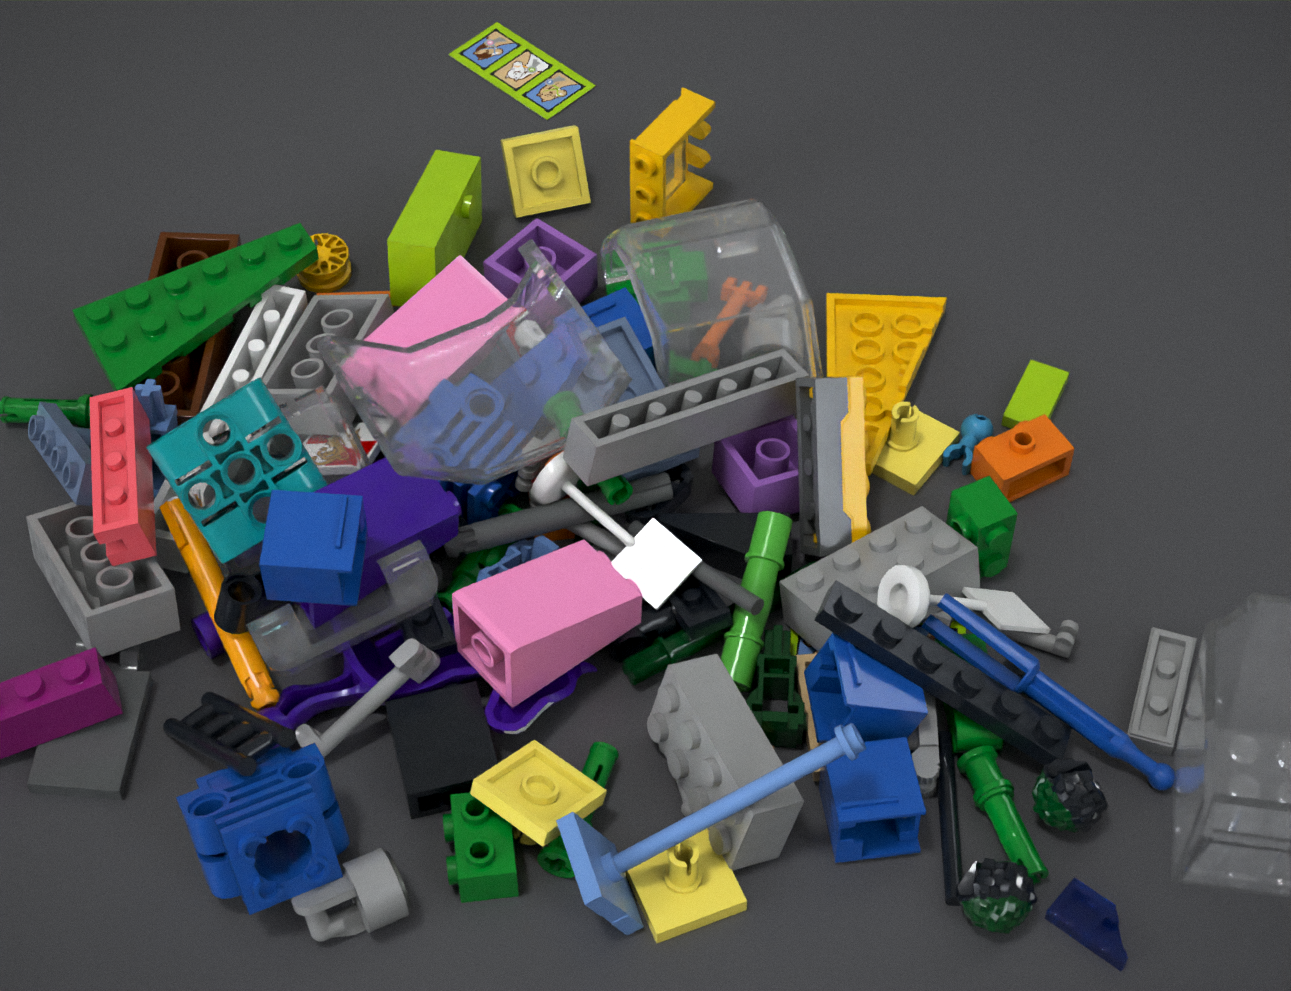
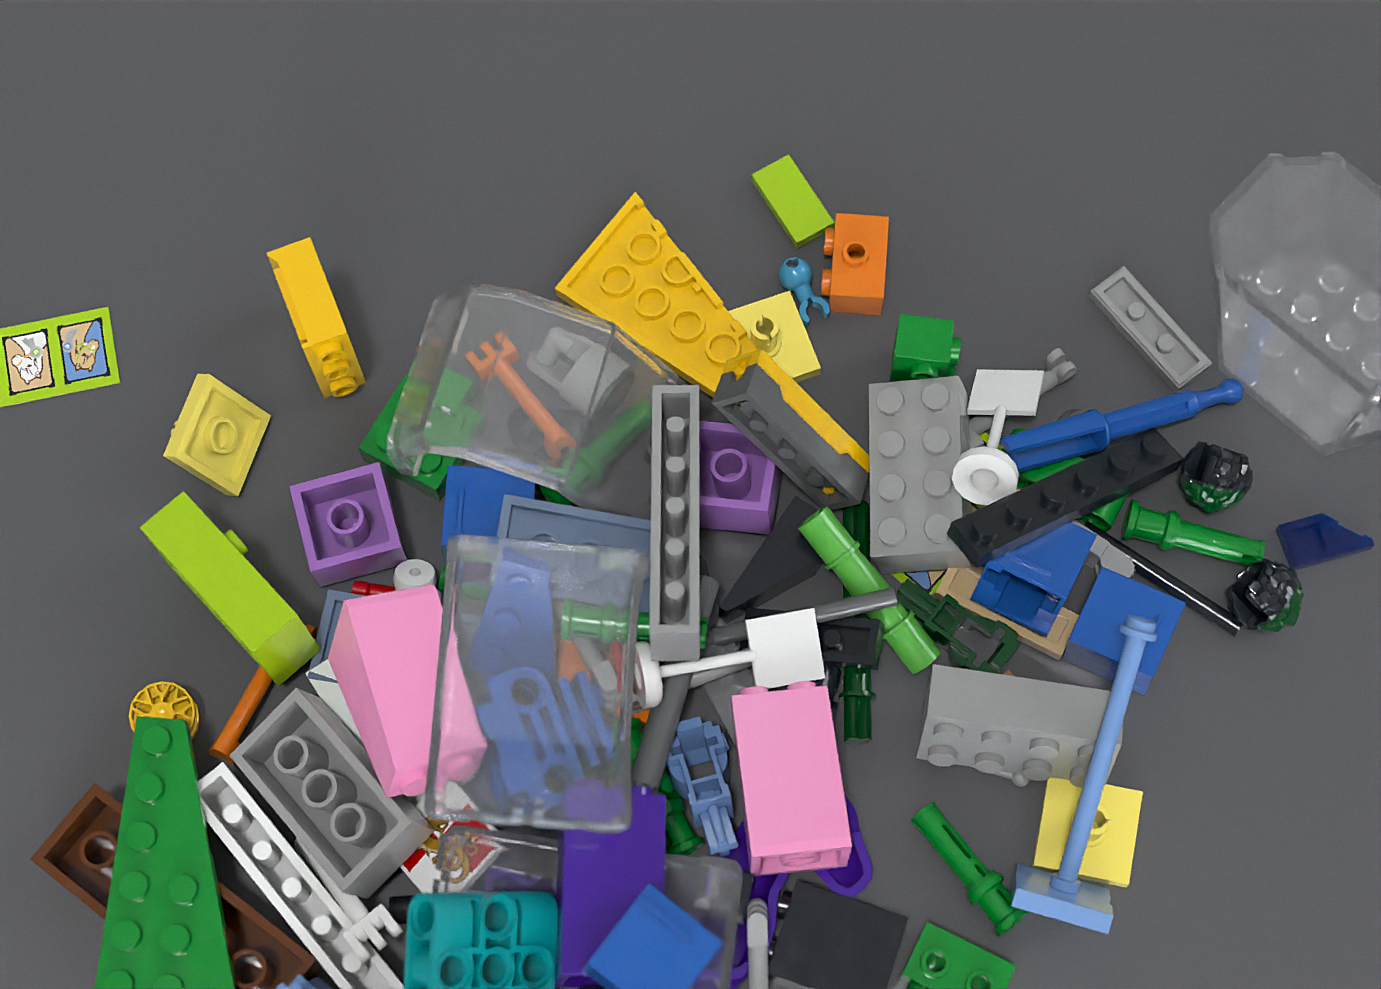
camera: 55 degrees left, 20 degrees up
(536, 790) = (955, 899): light yellow tile -> none

